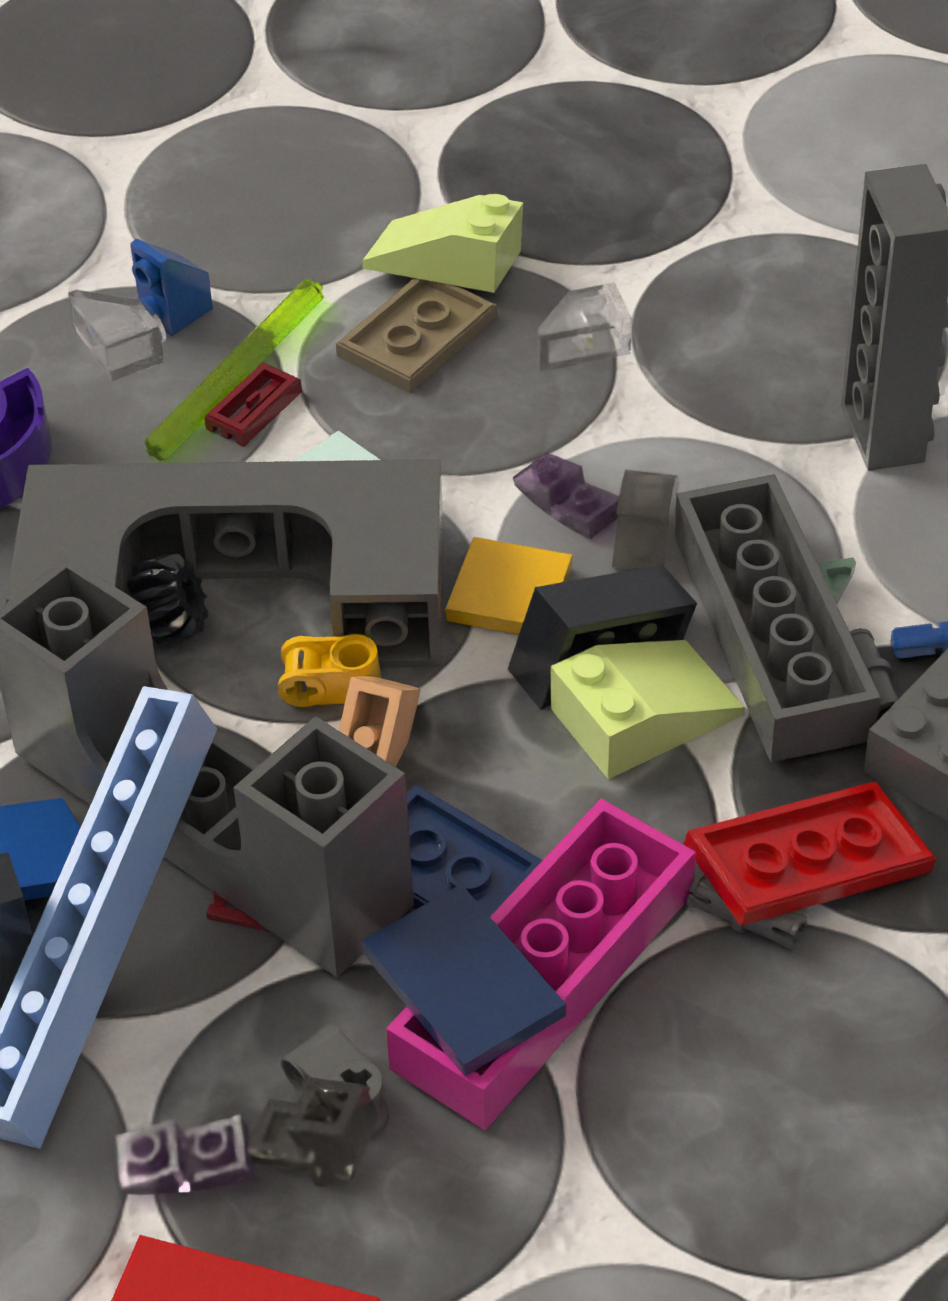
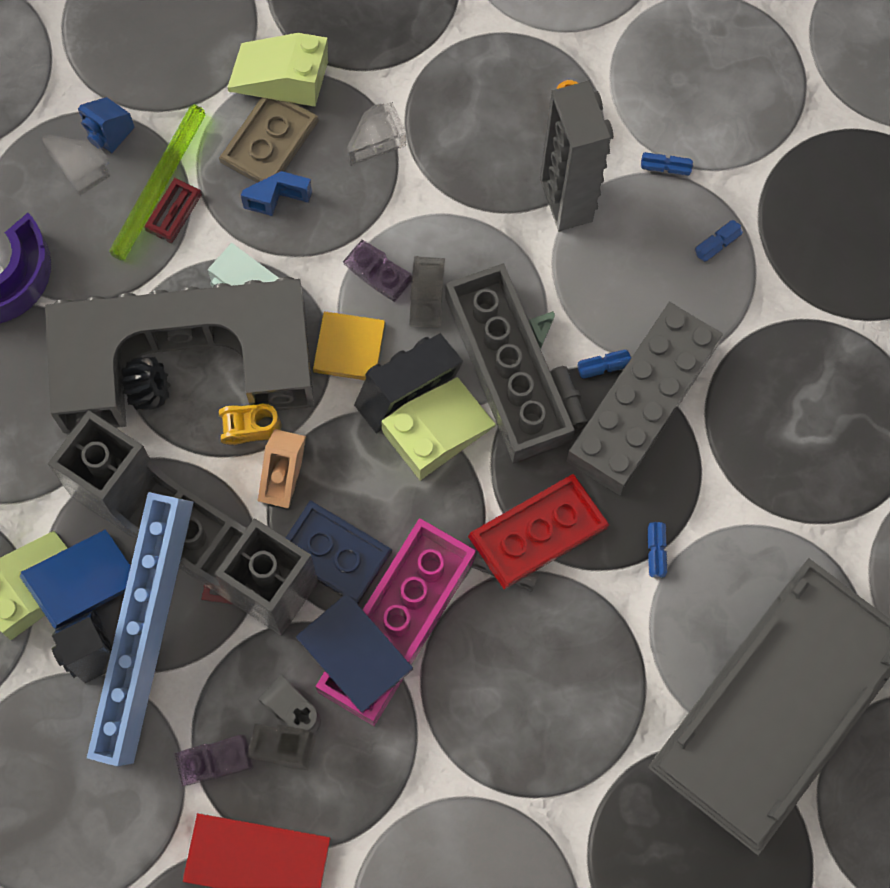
camera: 10 degrees left, 25 degrees up
(402, 385) = (265, 194): none -> blue slope

